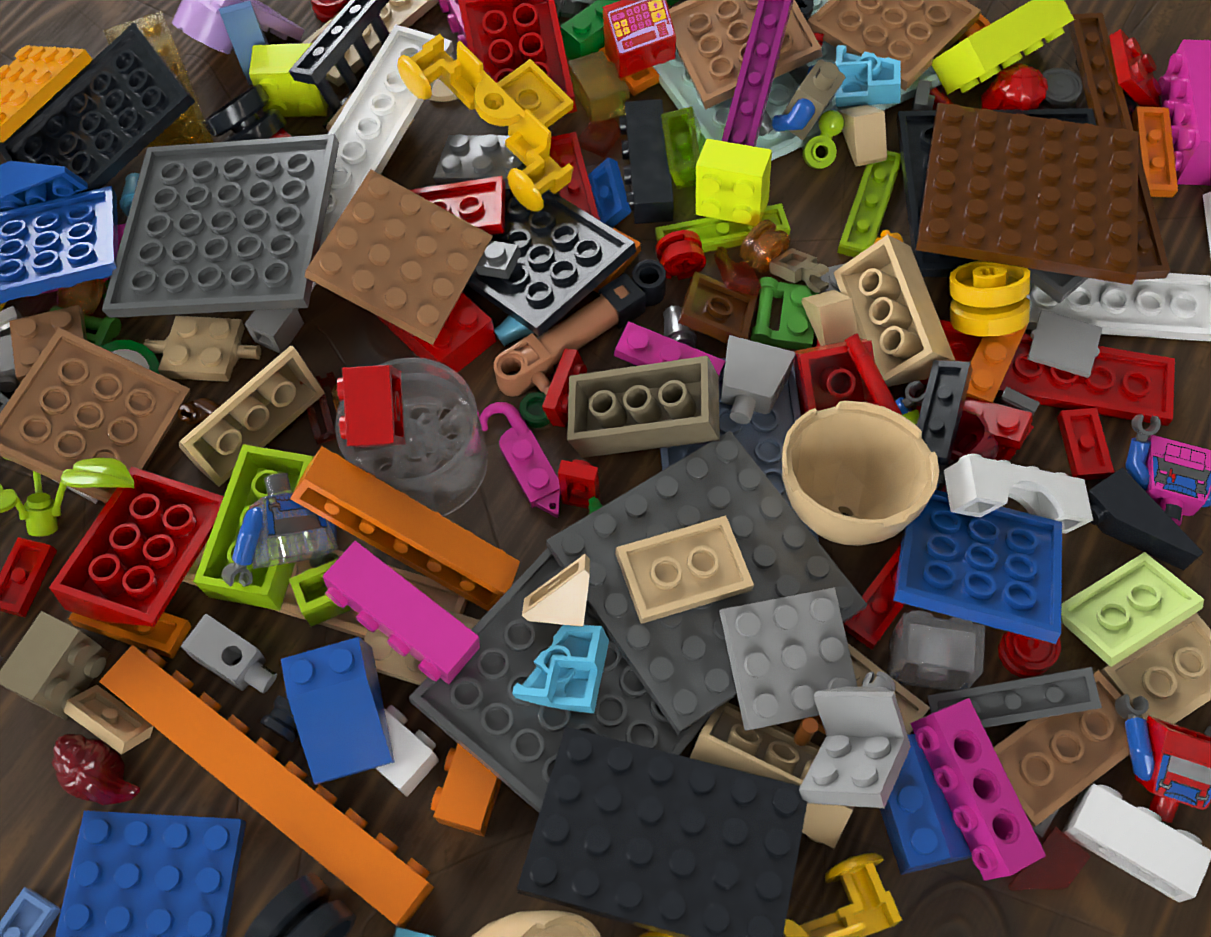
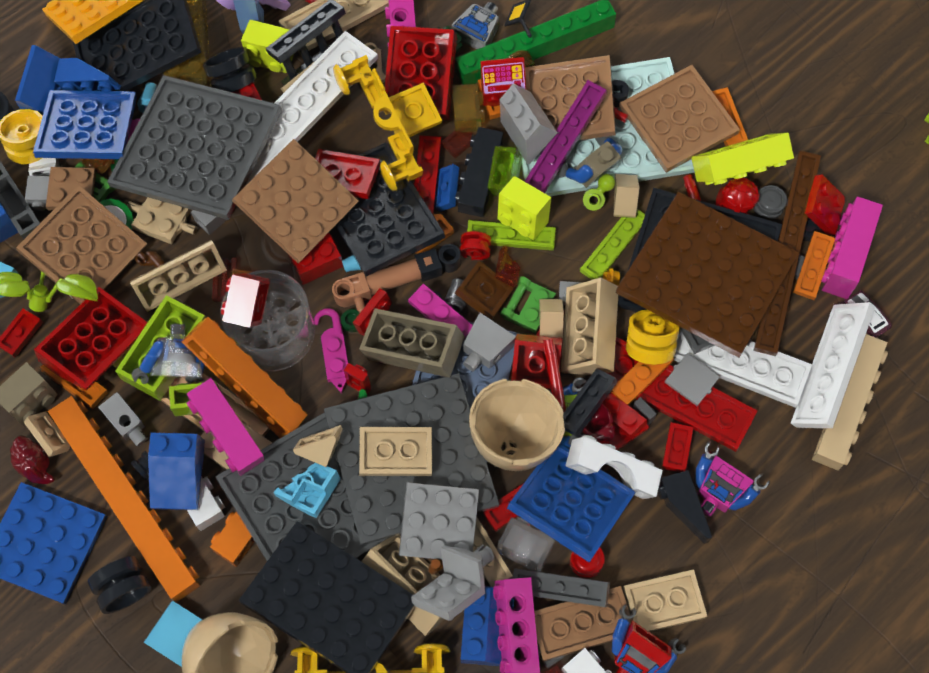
camera: 15 degrees right, 5 degrees up
(475, 158) = (368, 140): dark grey plate -> none
(498, 259) = (357, 217): dark grey plate -> none
(690, 74) = (525, 122): none -> light grey slope
(764, 245) = (530, 255): clear orange wheel -> none
(797, 265) = (547, 275): dark tan plate -> none
(867, 79) = (641, 157): medium azure slope -> none
(922, 100) = (676, 182): dark grey plate -> none
(1129, 608) = (654, 555): yellowish green plate -> none

